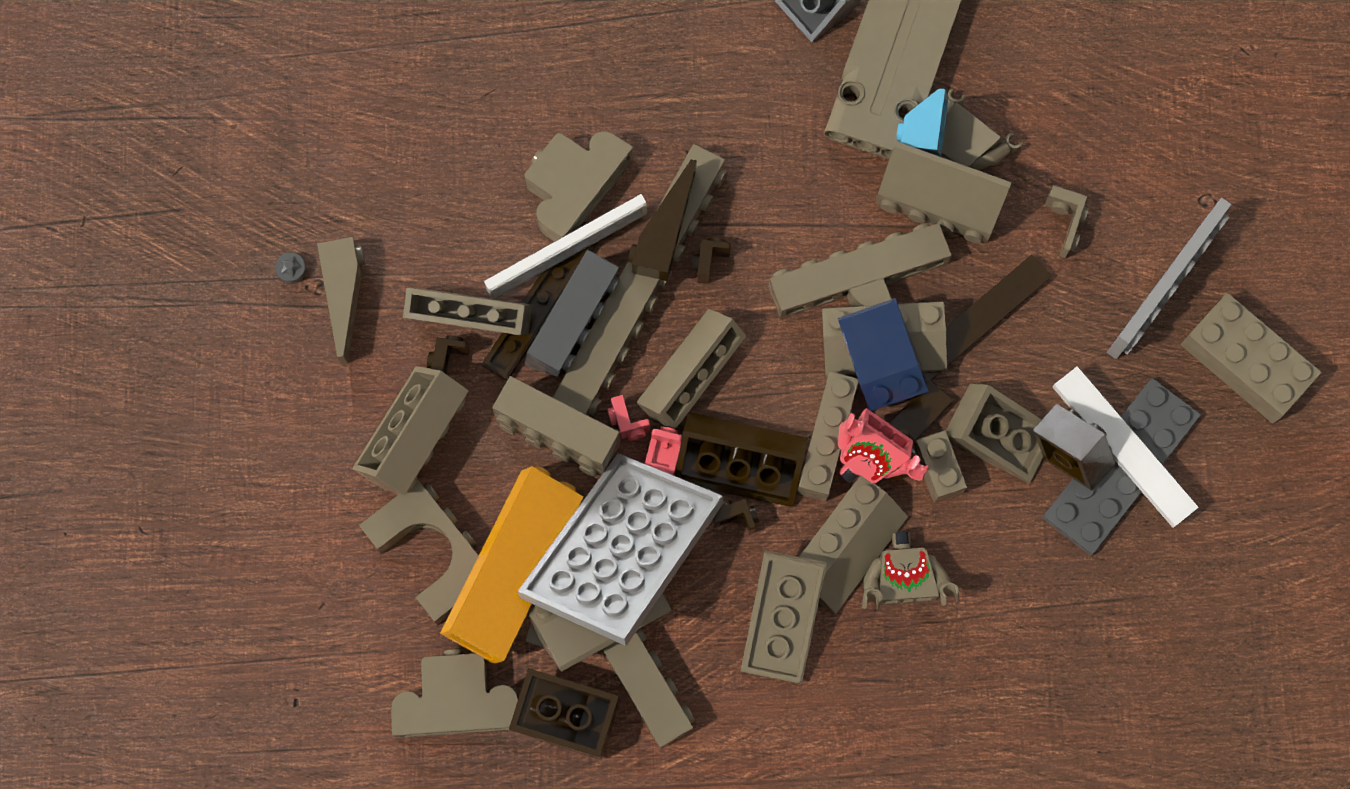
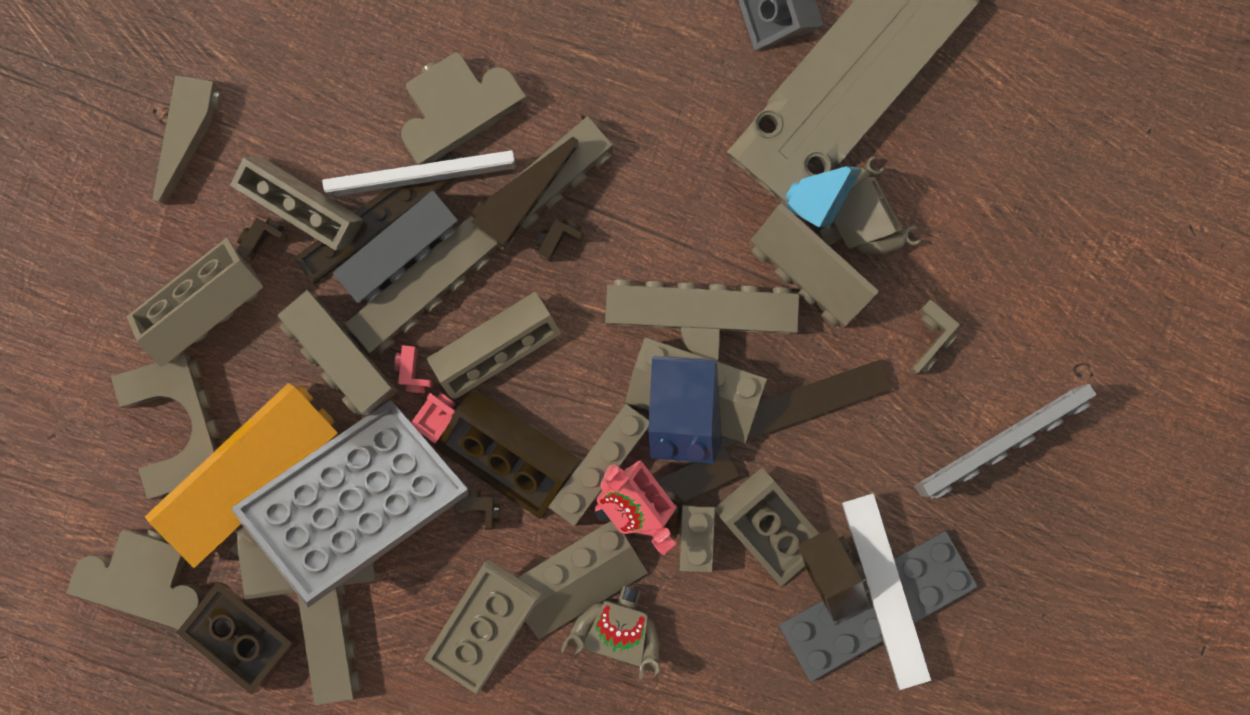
camera: 25 degrees right, 10 degrees up
(290, 268) = (144, 86): dark grey tile -> none
(1250, 358) = (1051, 551): dark tan brick -> none

